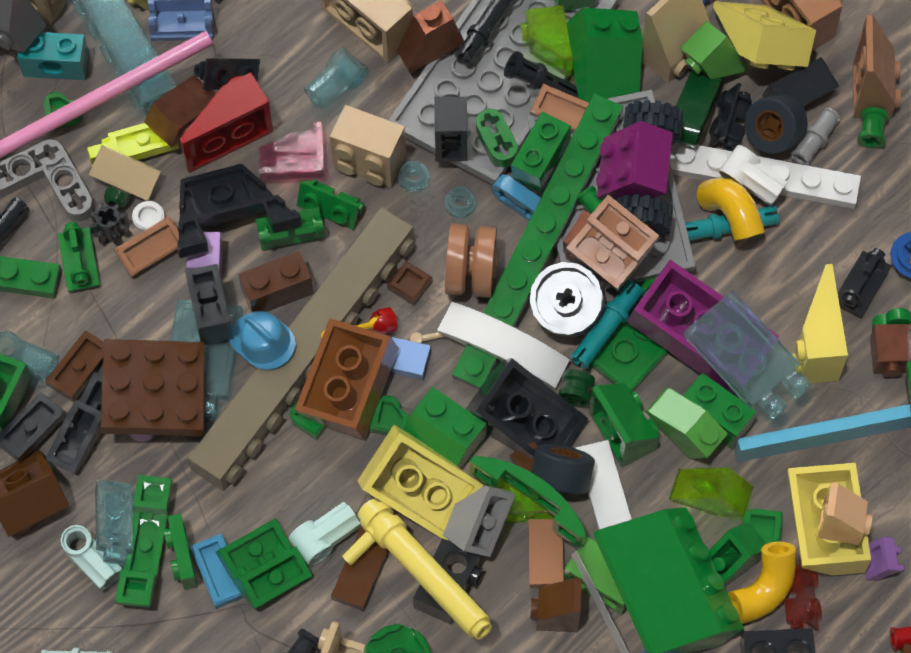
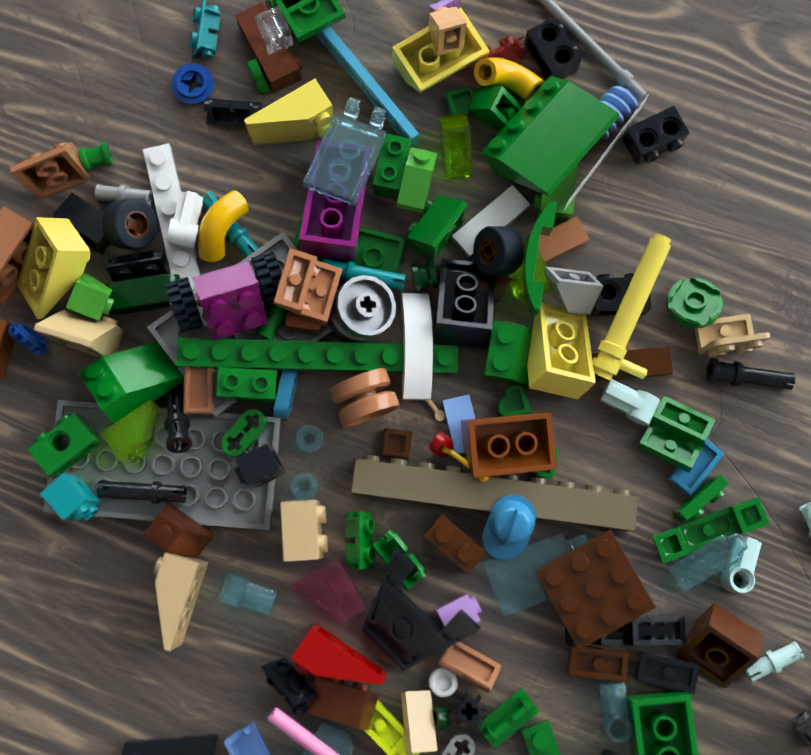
camera: 120 degrees left, 15 degrees up
(209, 304) = (505, 582): black brick -> none
(558, 606) = (600, 206): reddish brown slope -> none

